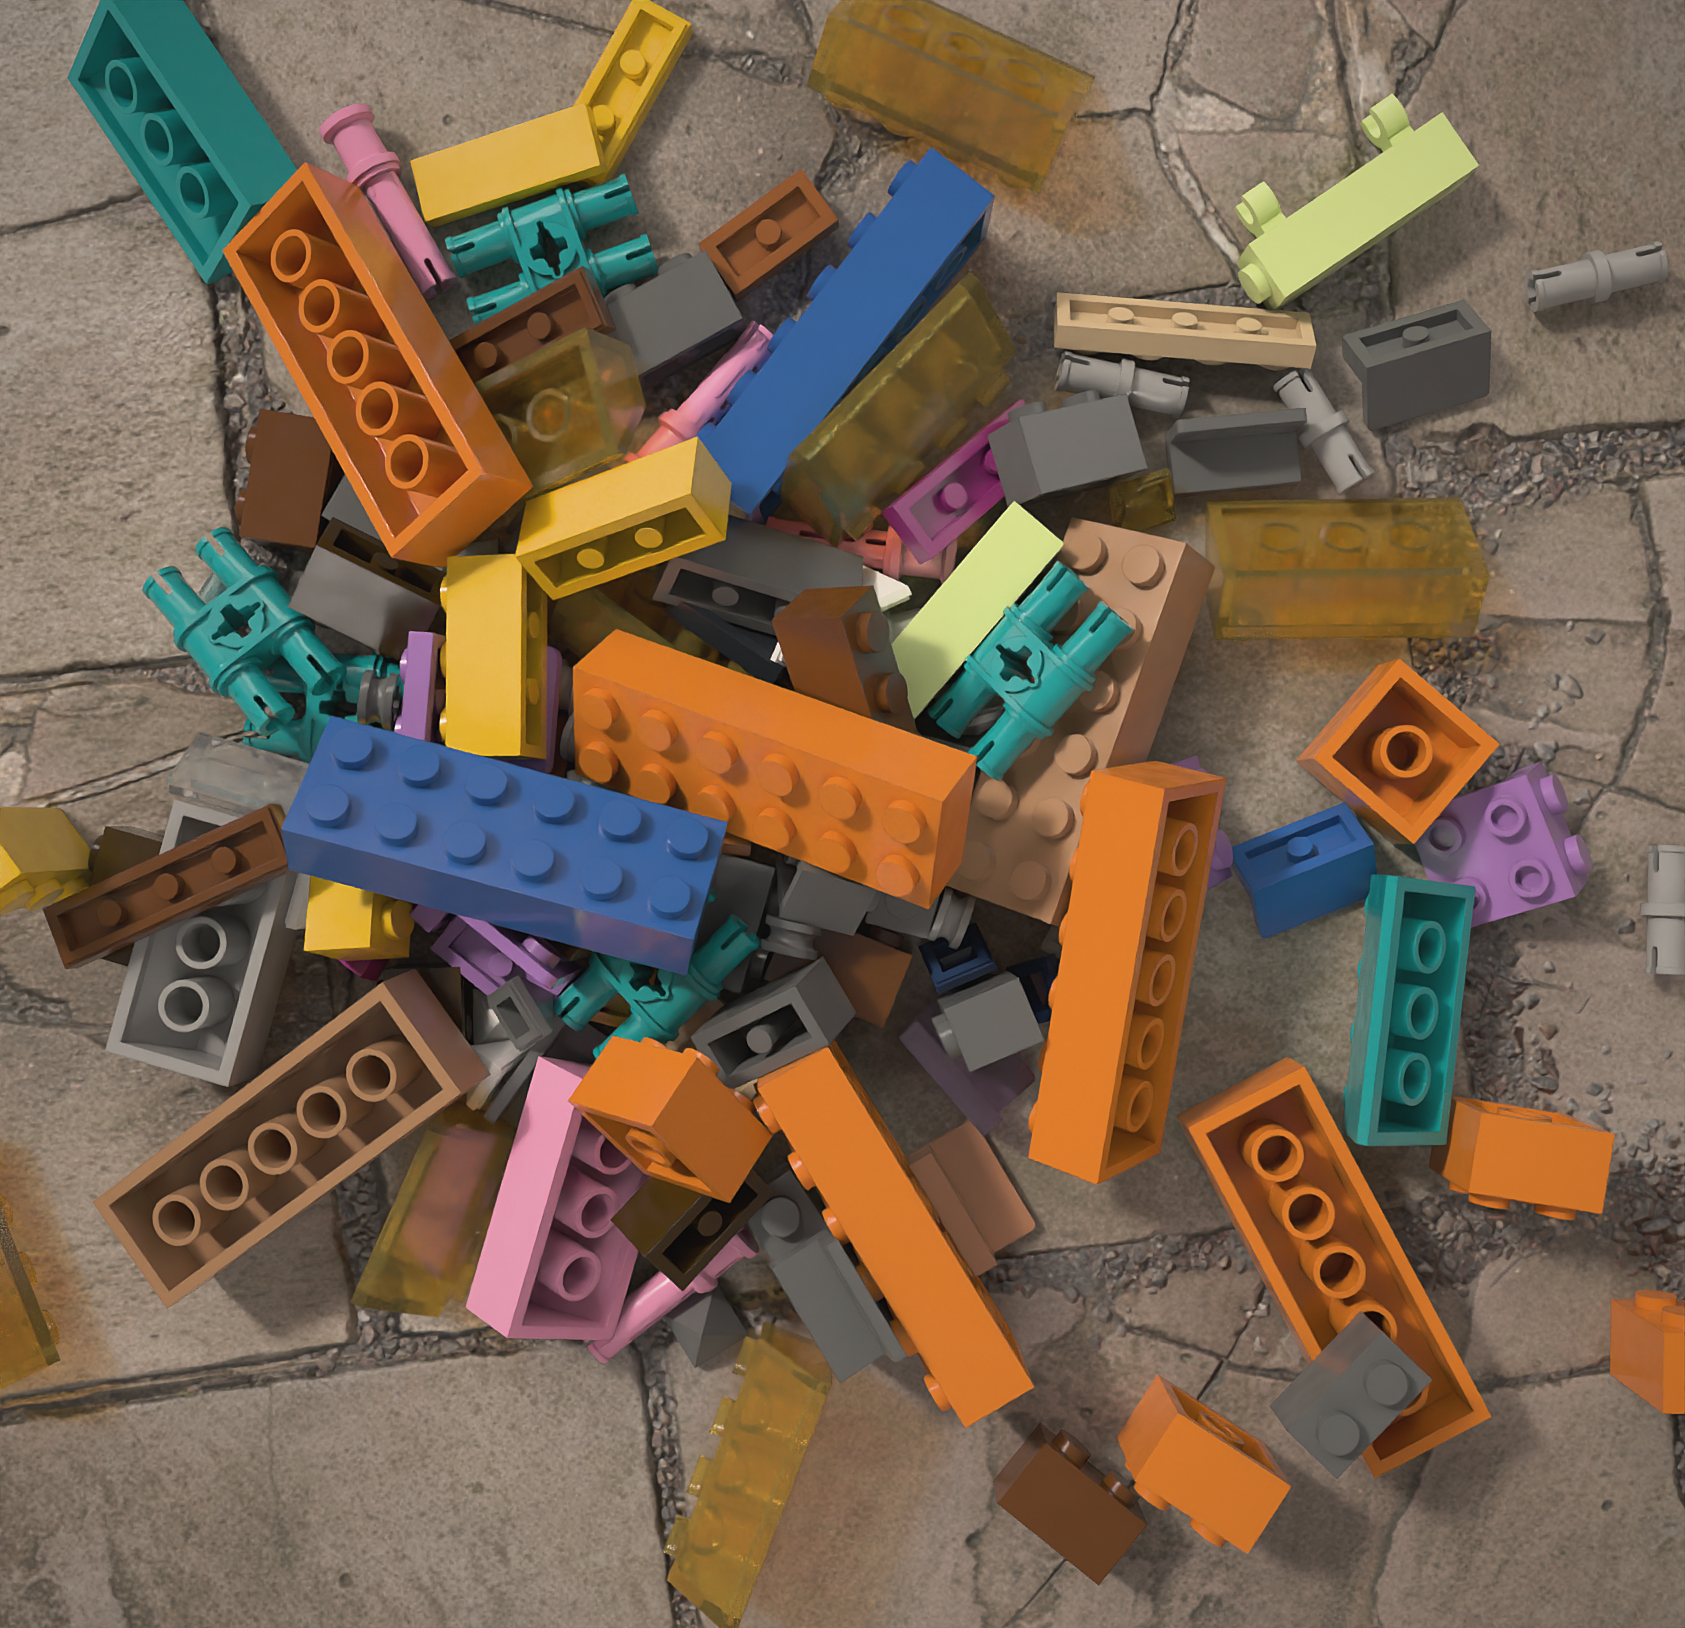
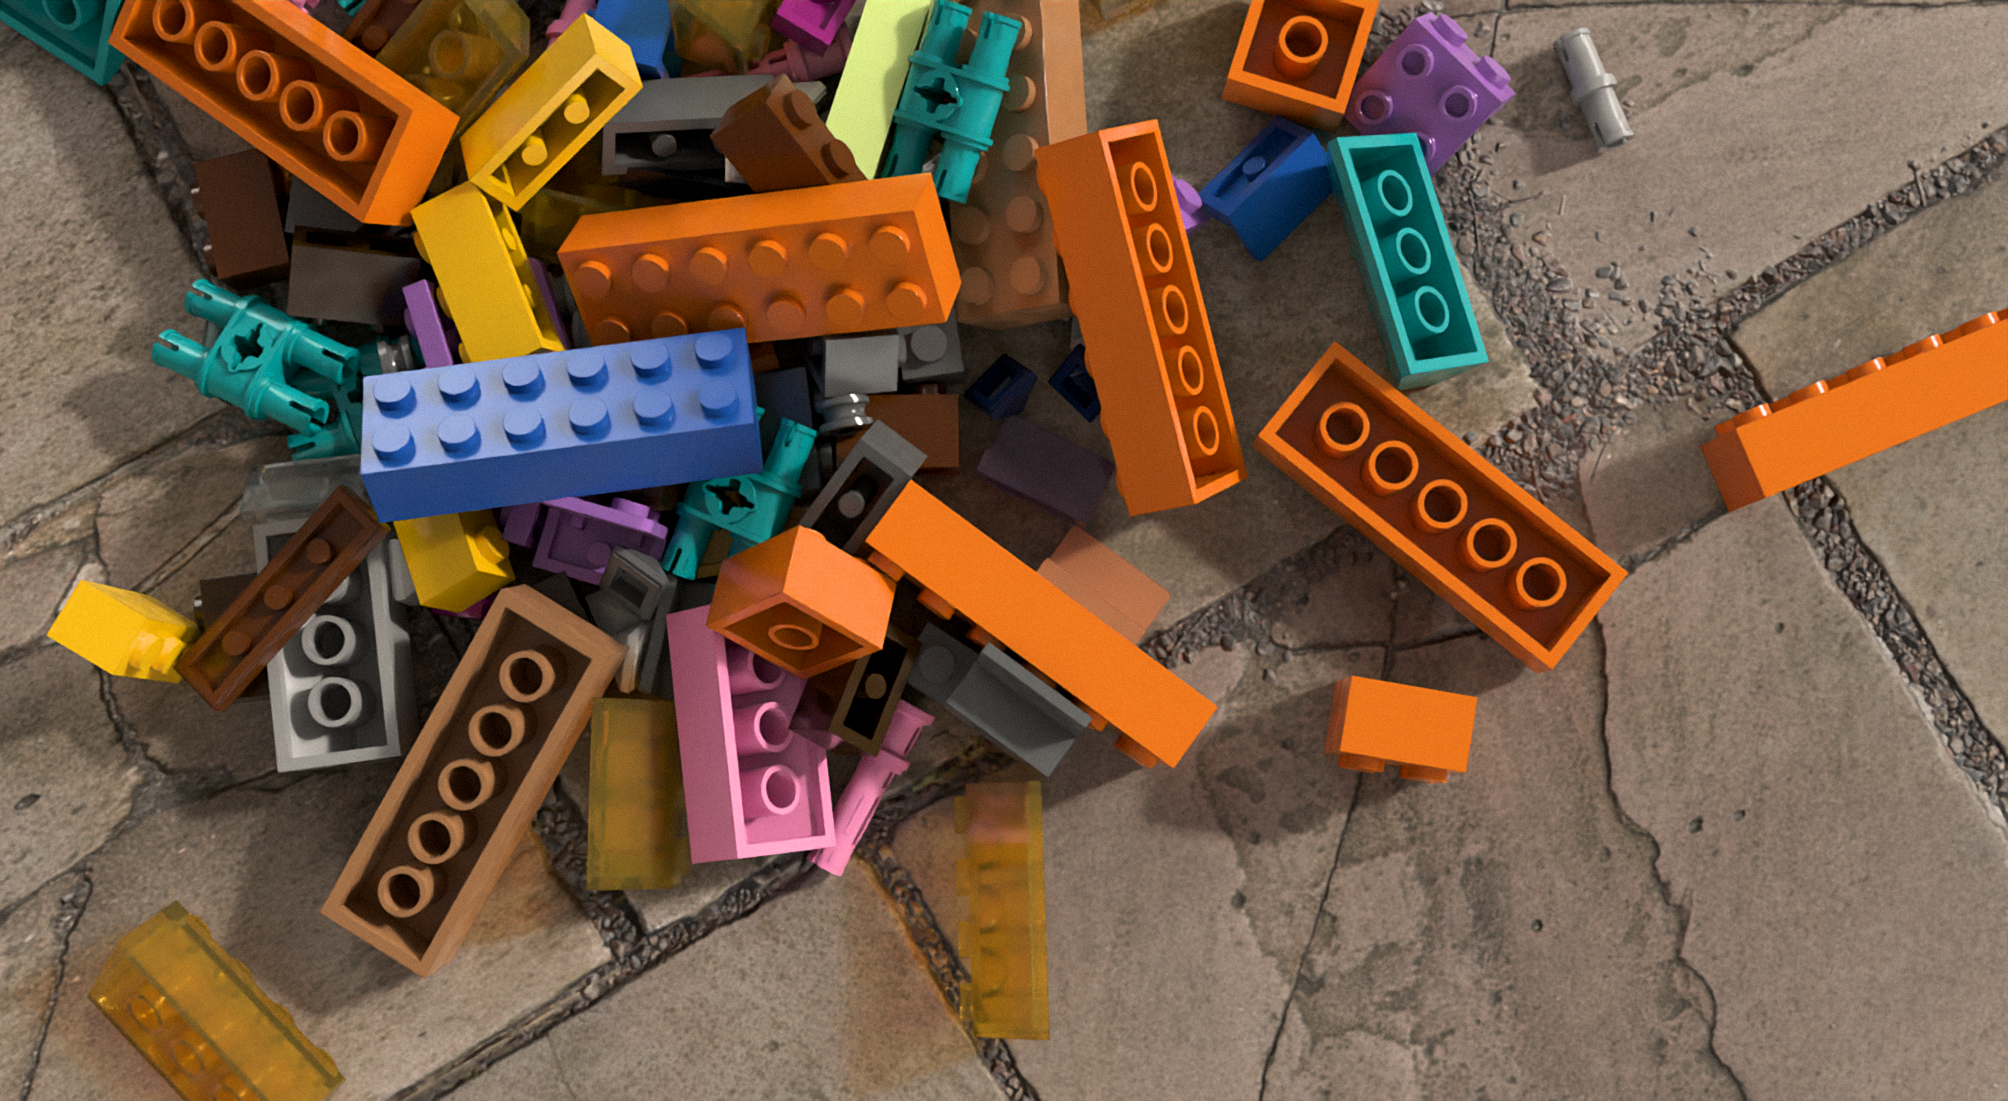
camera: 25 degrees left, 5 degrees down
(706, 1325) = (915, 807): dark grey slope -> none
(951, 917) = (978, 351): light grey bush -> none
(986, 1021) = (1044, 418): dark grey brick -> none
(1070, 1501) = (1303, 819): reddish brown brick -> none
(1349, 1394) = (1492, 594): dark grey brick -> none
(1524, 1156) = (1556, 340): orange brick -> none

